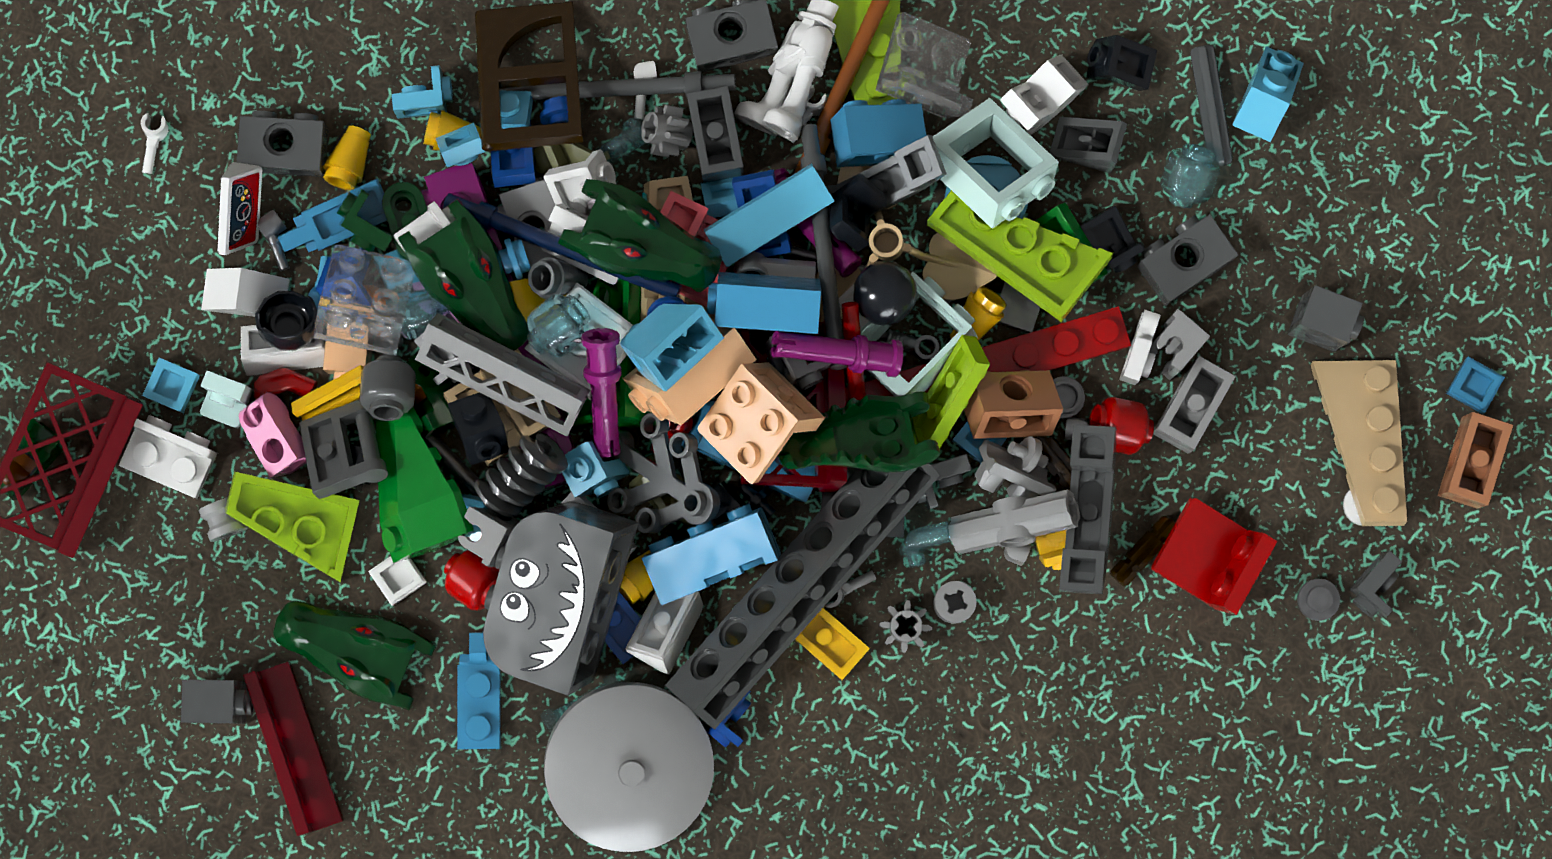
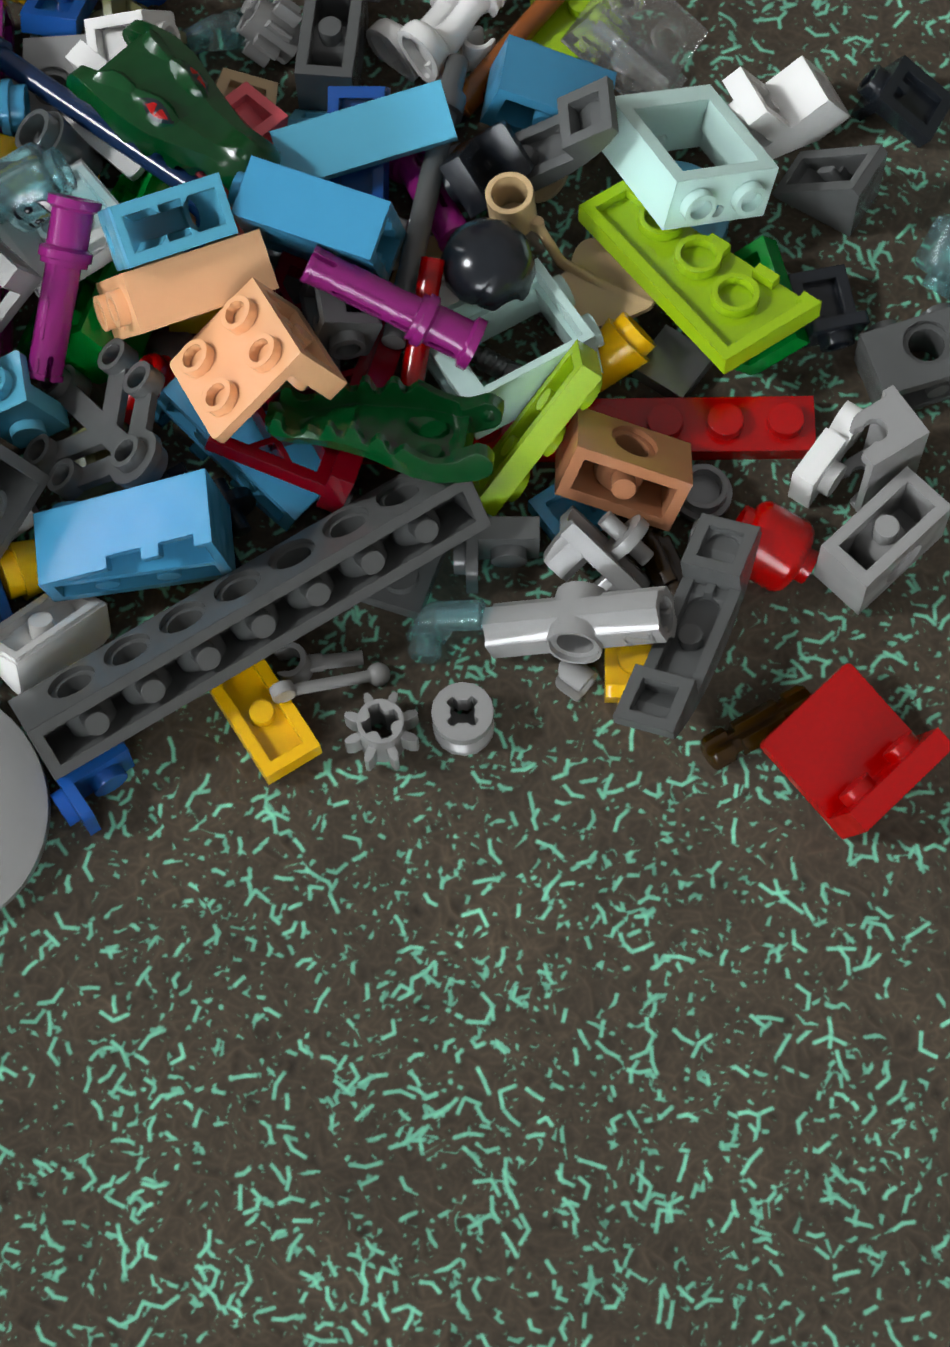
camera: 20 degrees right, 15 degrees down
(888, 584) = (285, 690): none -> light grey hinge

